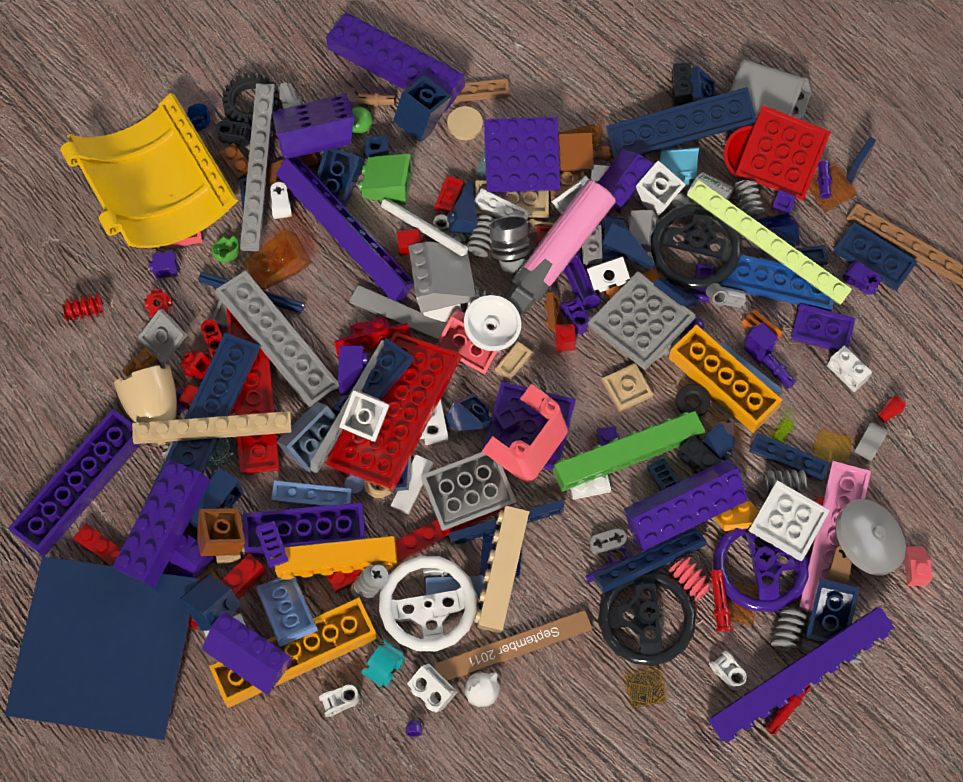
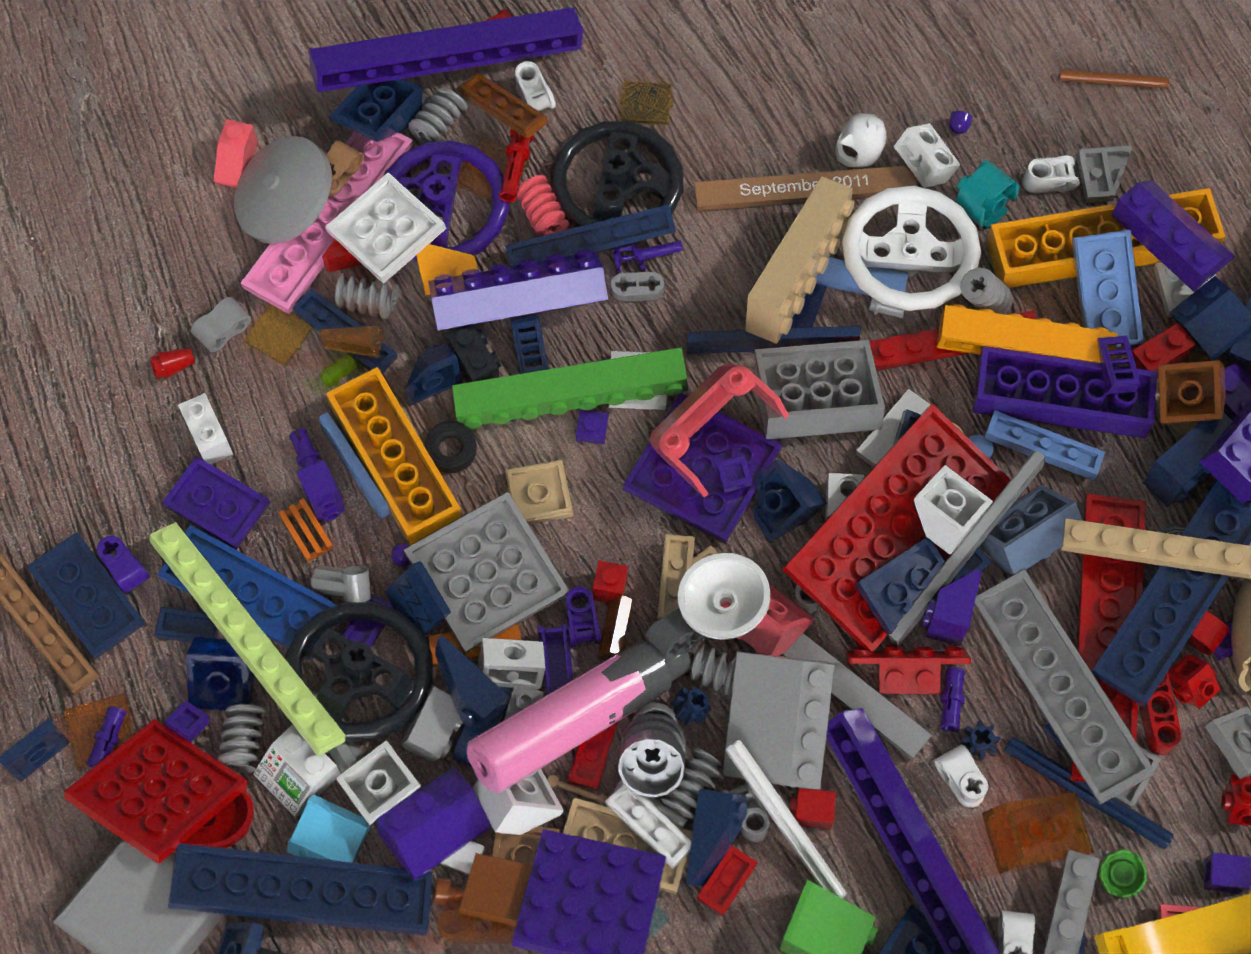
camera: 165 degrees left, 0 degrees up
(303, 713) = (1102, 171): none -> light grey wing
(323, 302) = (976, 733): none -> dark blue gear
(328, 282) = (960, 772): none -> white piece
(340, 321) = (952, 699): none -> dark purple pin
(490, 279) = (691, 705): none -> dark blue gear
(526, 352) = (676, 561): none -> tan tile
(745, 646) = (503, 105): none -> dark orange tile
(777, 443) = (354, 340): none -> clear orange slope

